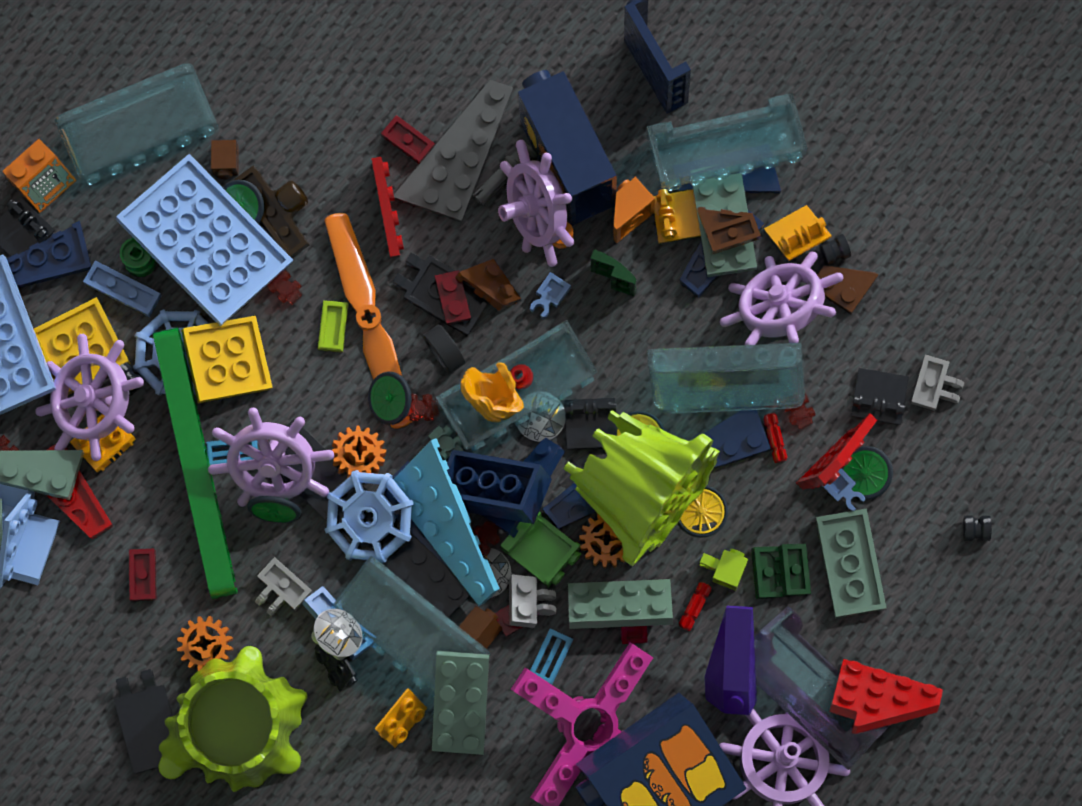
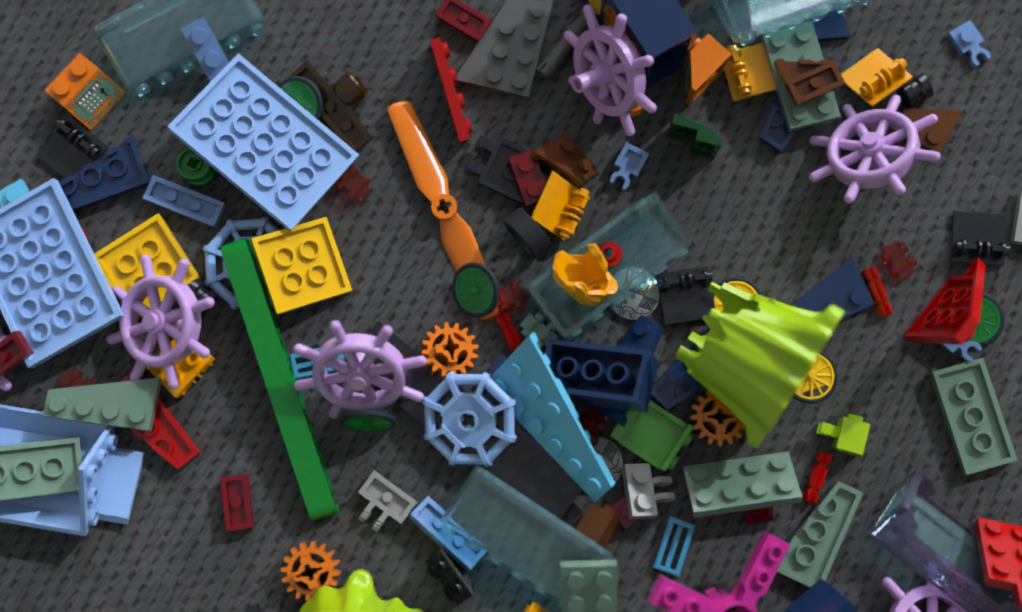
camera: 10 degrees left, 5 degrees up
(158, 145) = (205, 47): none -> medium blue plate
(224, 158) = (276, 55): reddish brown brick -> none
(333, 326) = (407, 219): lime tile -> none
(337, 633) = (451, 552): light grey dish -> none
(417, 440) = (508, 331): none -> red axle
(478, 327) = (559, 206): none -> light orange hinge
(686, 664) = (820, 536): none -> sand green wing
(727, 378) = (827, 235): clear light blue windscreen -> none
(732, 668) = (870, 543): dark purple wedge -> none
(781, 571) = (901, 431): dark green slope -> none
(895, 205) = (967, 40): none -> medium blue plate

